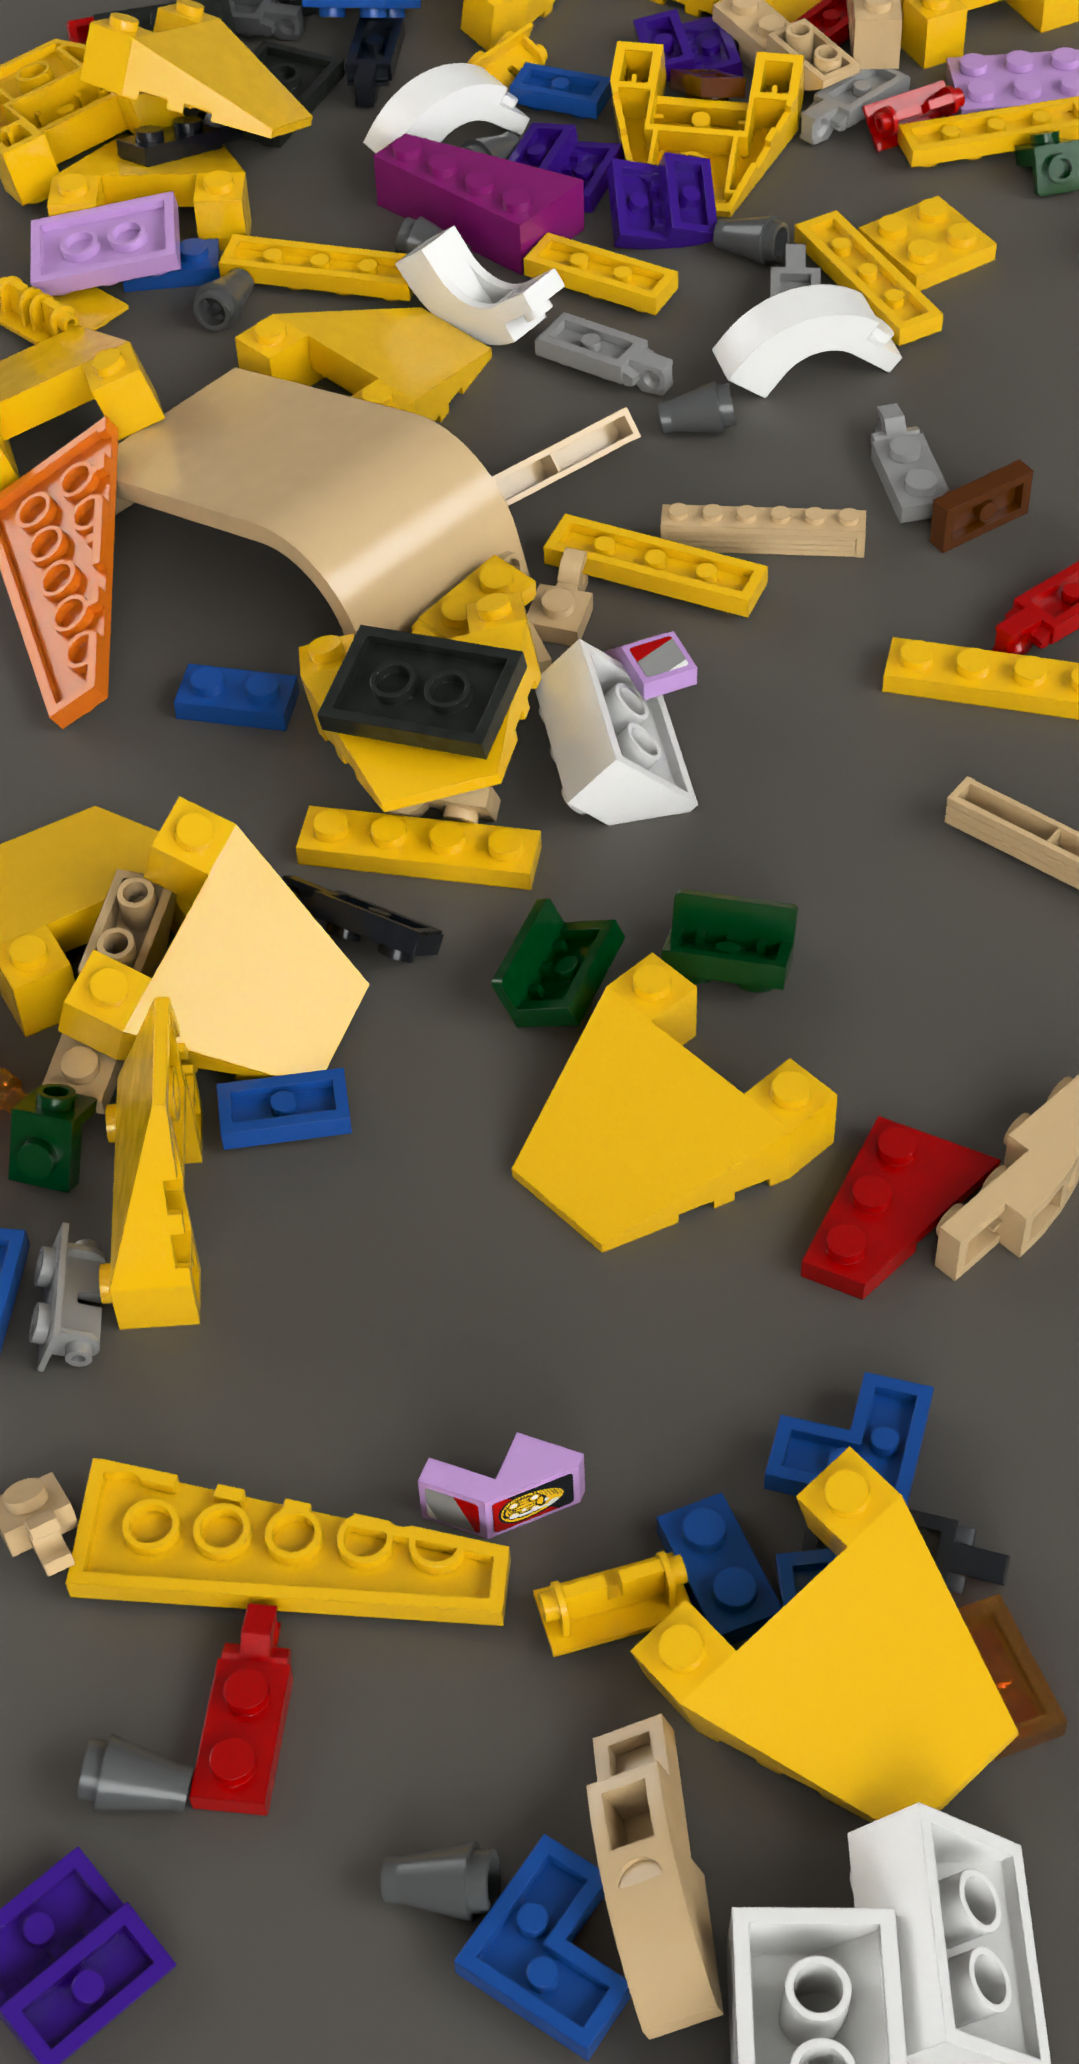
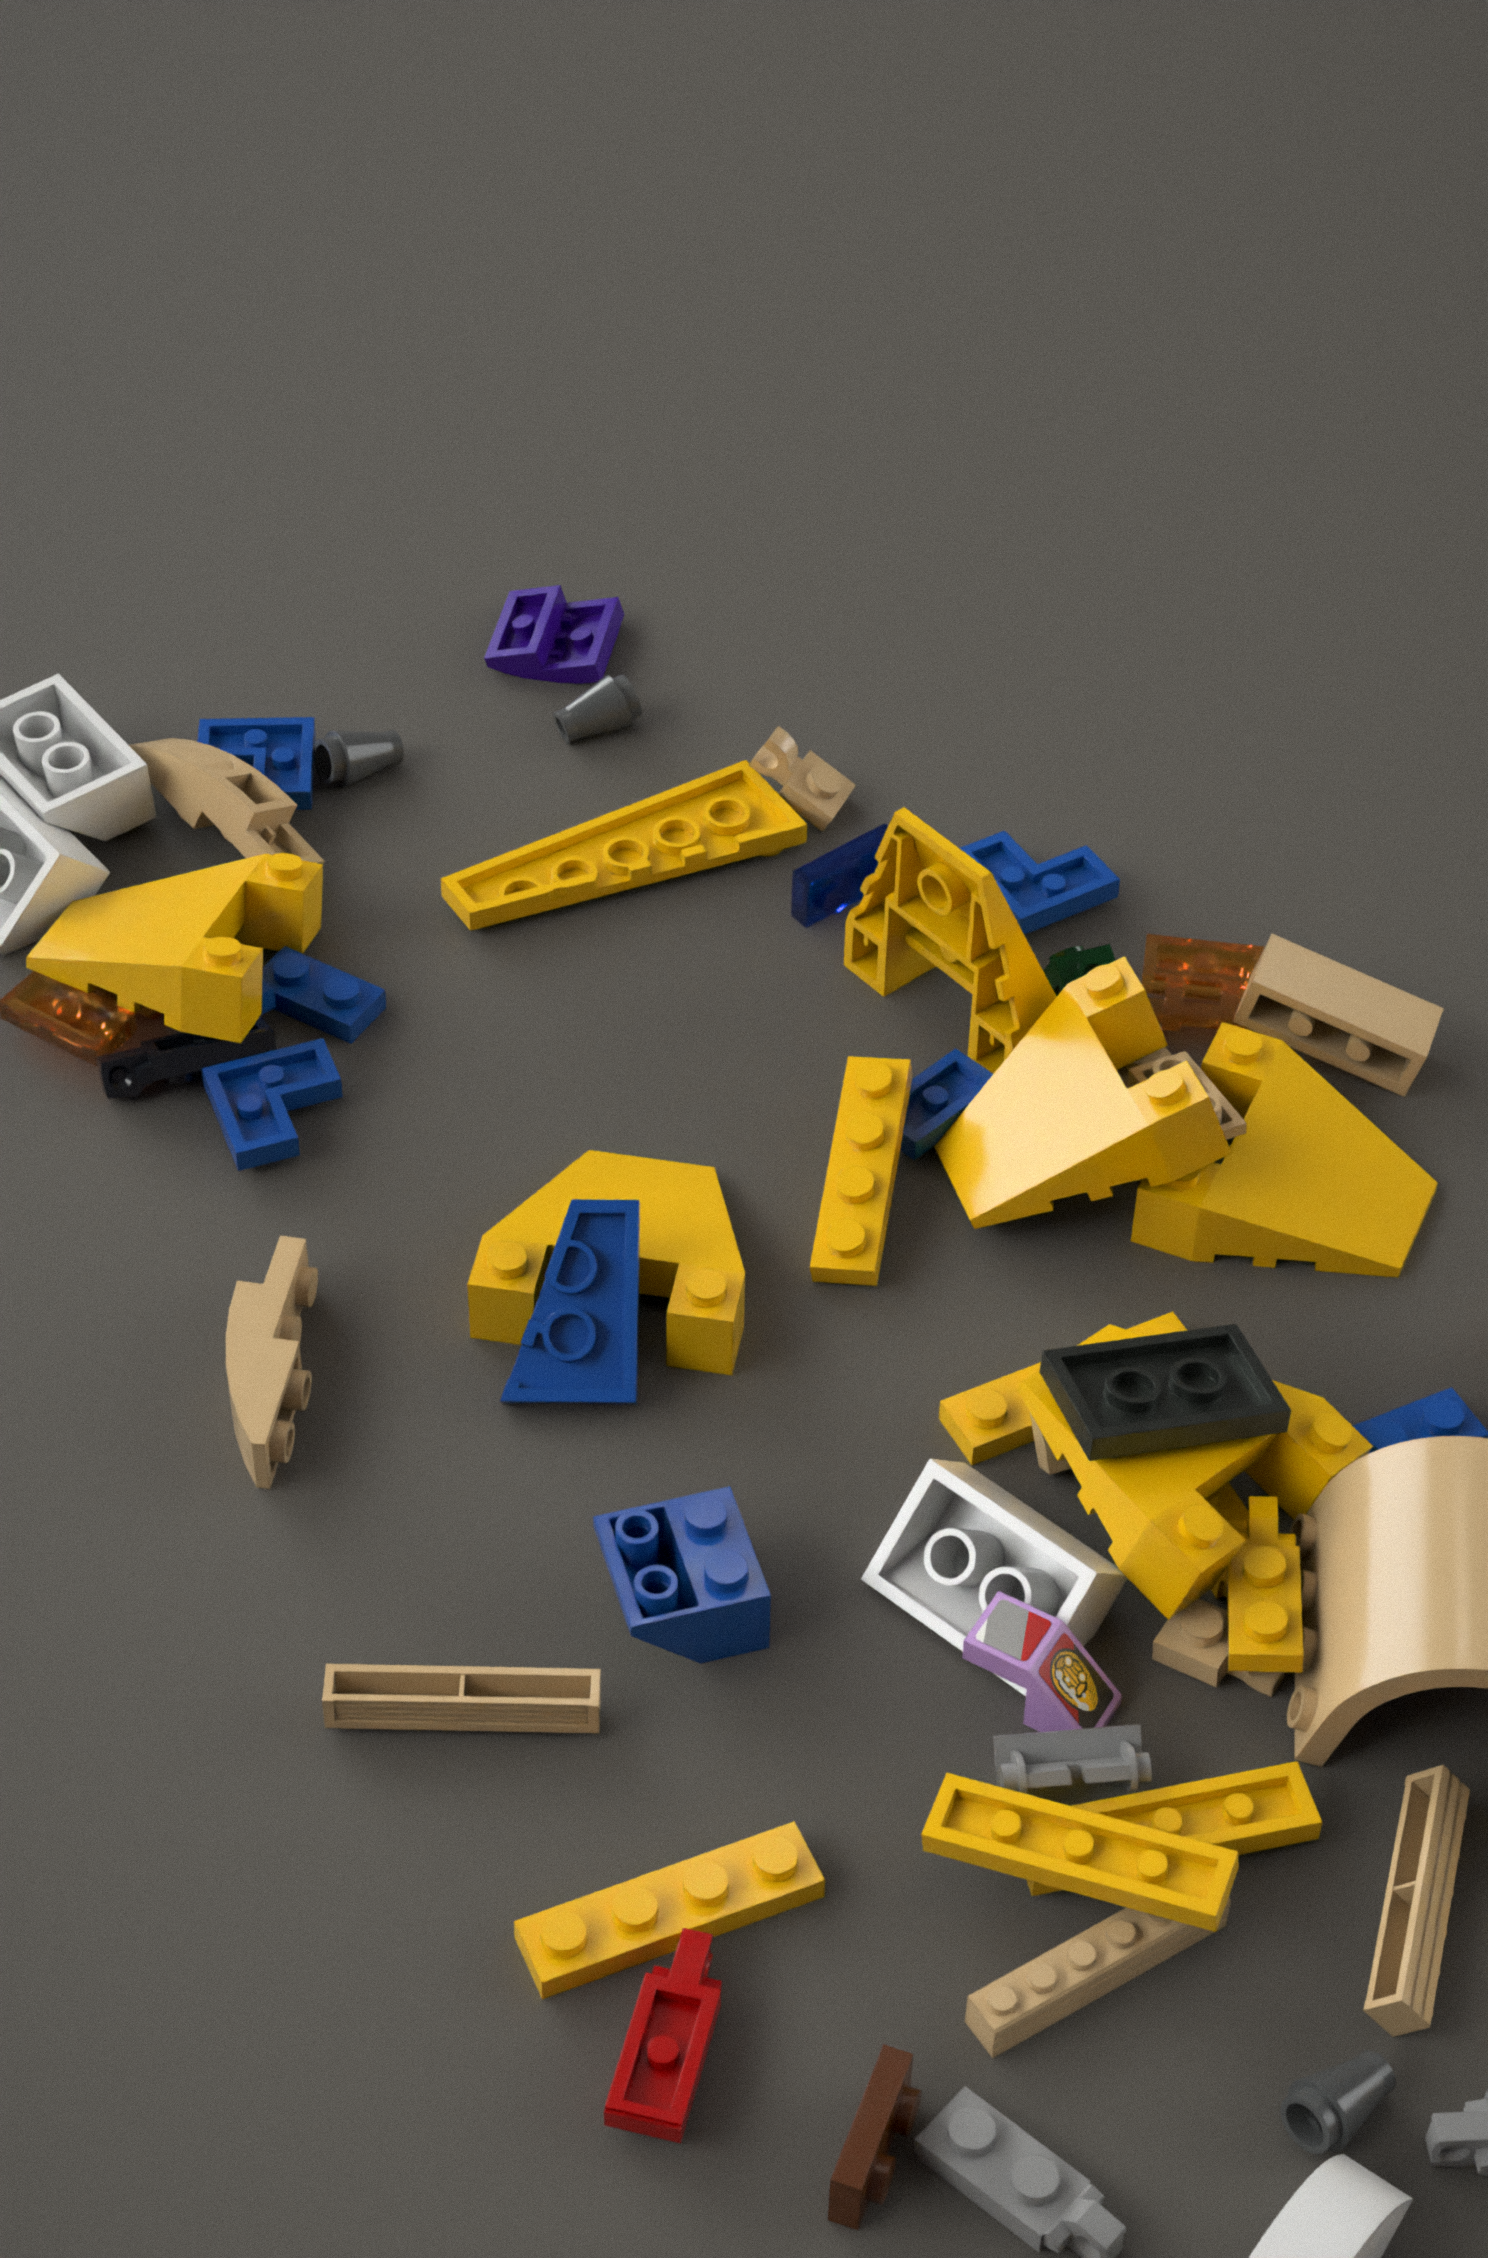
camera: 140 degrees right, 5 degrees down
(116, 1380) = (834, 878): none -> clear blue plate
(245, 1719) = (560, 772): red hinge -> none
(354, 917) = (1038, 1275): black hinge -> none
(406, 1070) = (861, 1171): none -> yellow plate
(530, 1485) = (512, 933): lavender slope -> none
(555, 967) = (827, 1320): dark green bracket -> none
(564, 609) = (1212, 1721): tan plate -> none
(611, 1603) = (380, 933): yellow hinge -> none
(663, 602) = (1073, 1763): none -> light grey hinge
(731, 940) = (690, 1417): dark green bracket -> none
(740, 539) = (1081, 1851): none -> yellow plate
(753, 1036) = (587, 1313): none -> blue wing
(833, 828) = (688, 1576): none -> blue slope
(889, 1204) = (376, 1301): red wing -> none

